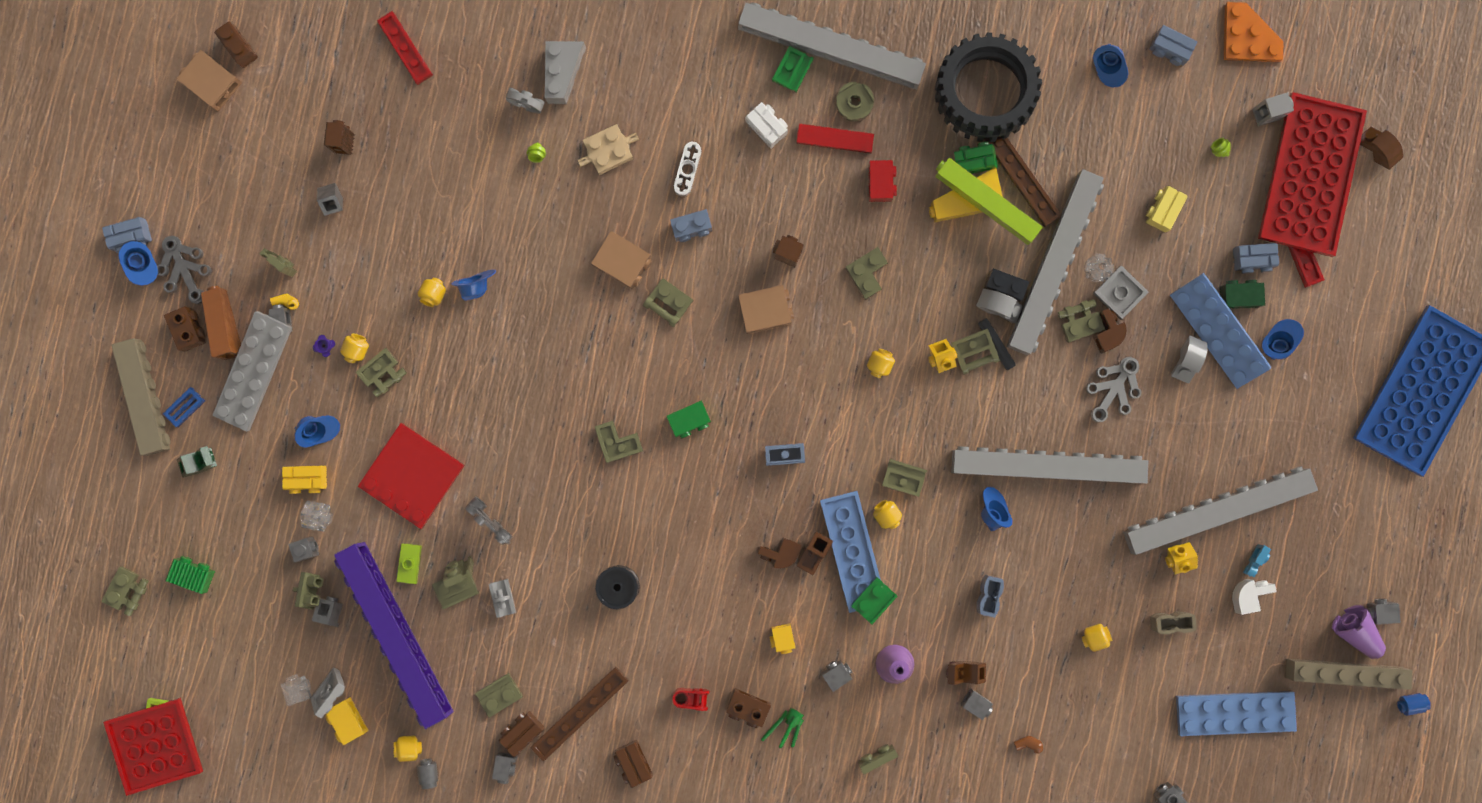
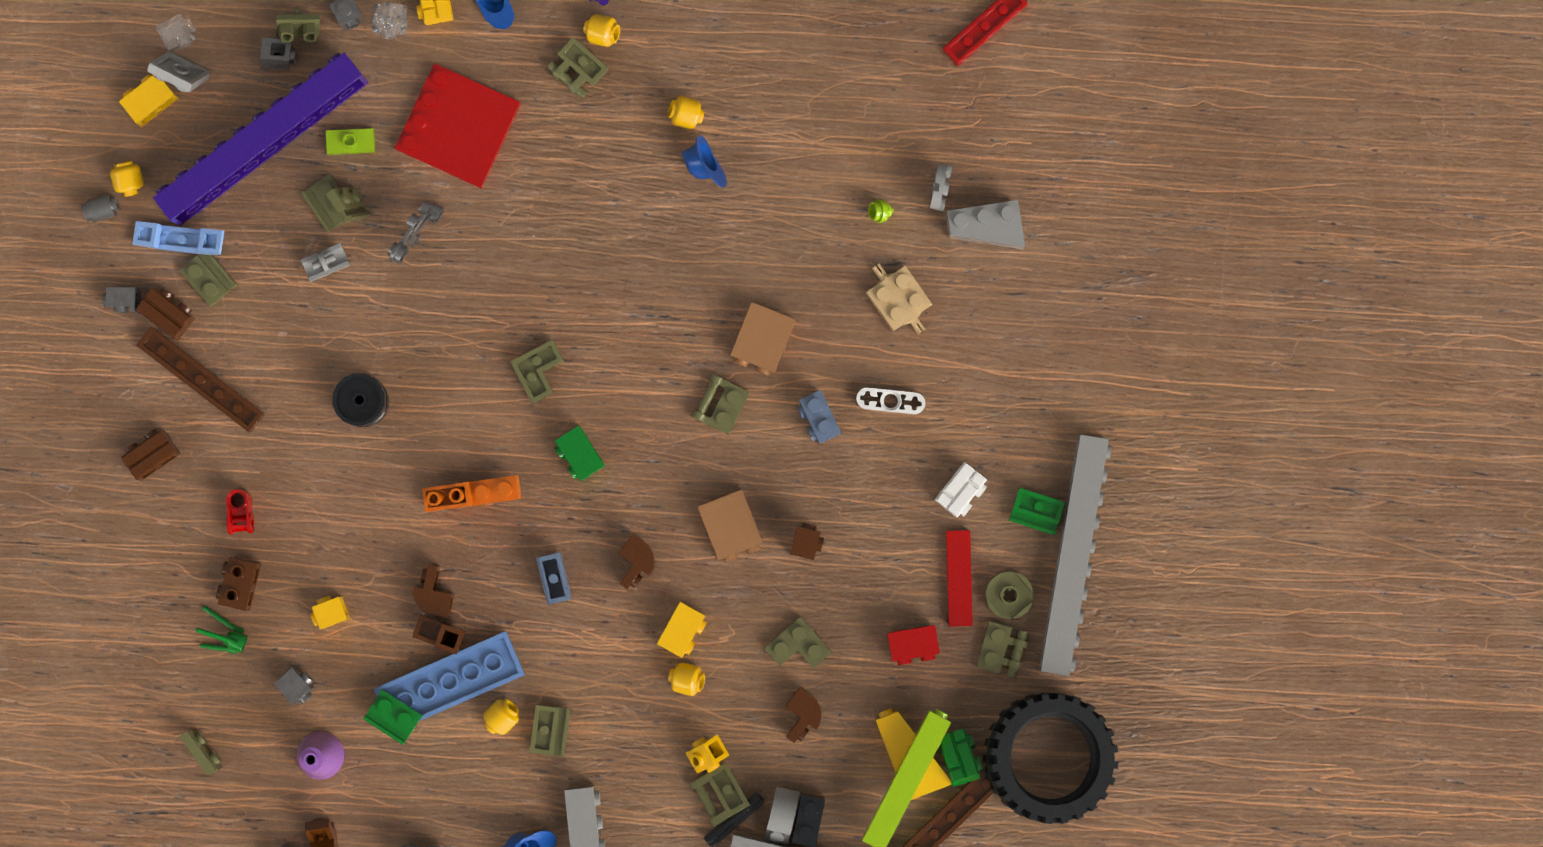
camera: 75 degrees right, 0 degrees up
(463, 714) = (178, 238): none -> light blue slope
(706, 510) = (471, 493): none -> orange slope
(777, 384) = (641, 556): none -> reddish brown brick
(841, 360) = (682, 629): none -> yellow brick
(893, 119) = (994, 648): none -> olive plate
(922, 271) = (807, 709): none -> reddish brown brick

